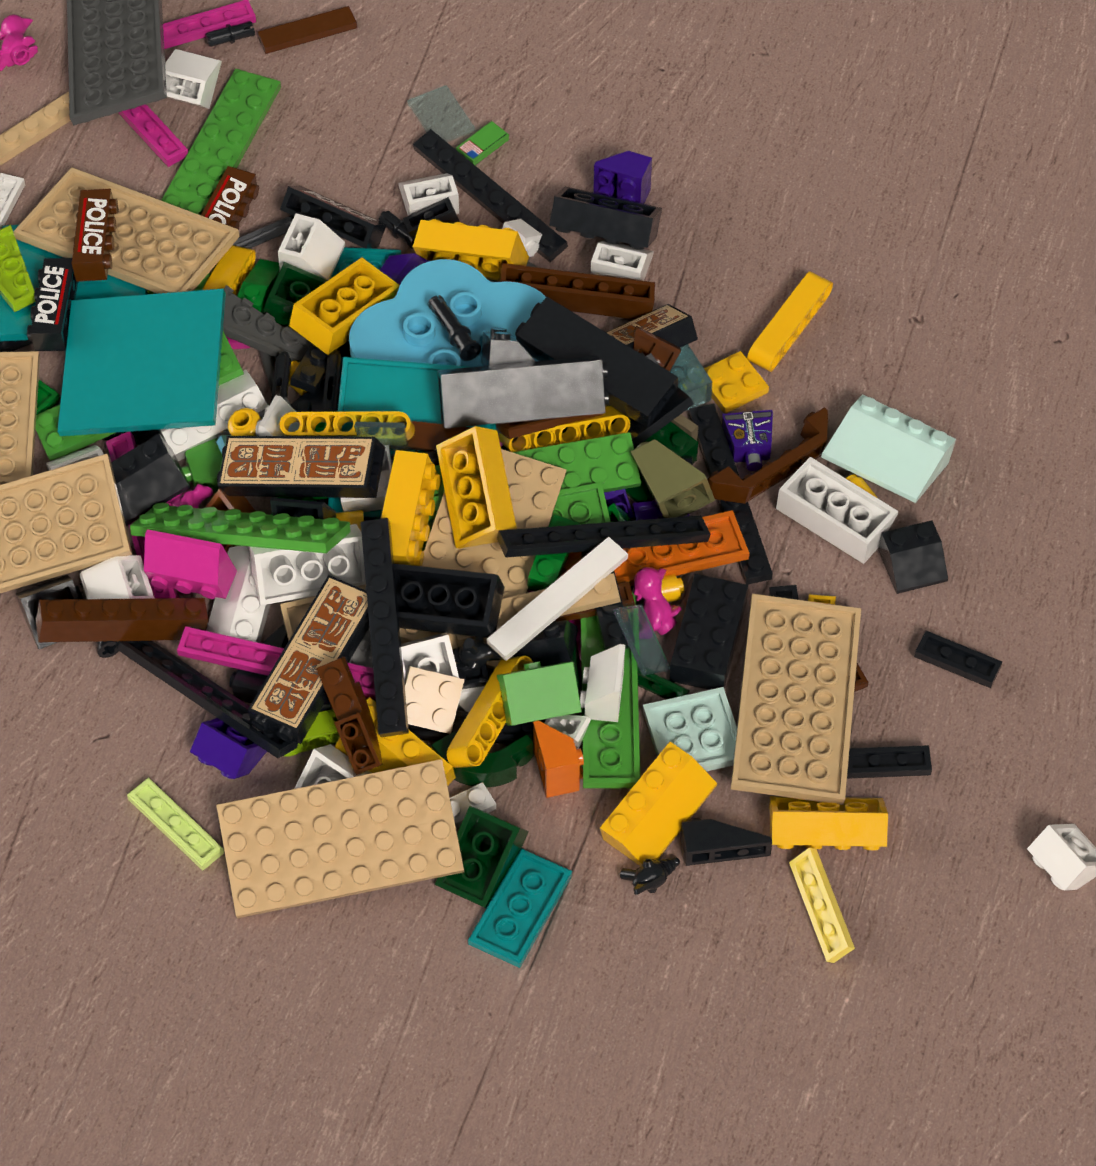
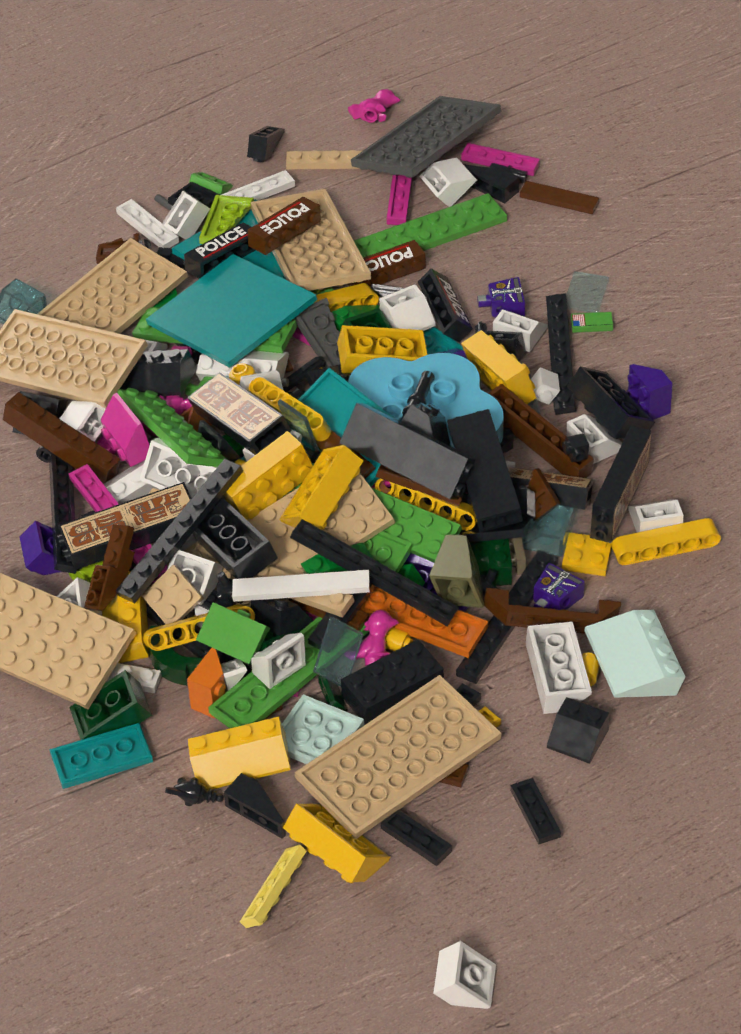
camera: 45 degrees right, 10 degrees down
(234, 51) = (497, 182): none -> black slope
(379, 172) = (504, 295): none -> dark purple torso
(637, 281) = (576, 447): none -> black plate
(705, 291) = (620, 484): none -> black brick
(757, 300) = (656, 514): none -> white slope

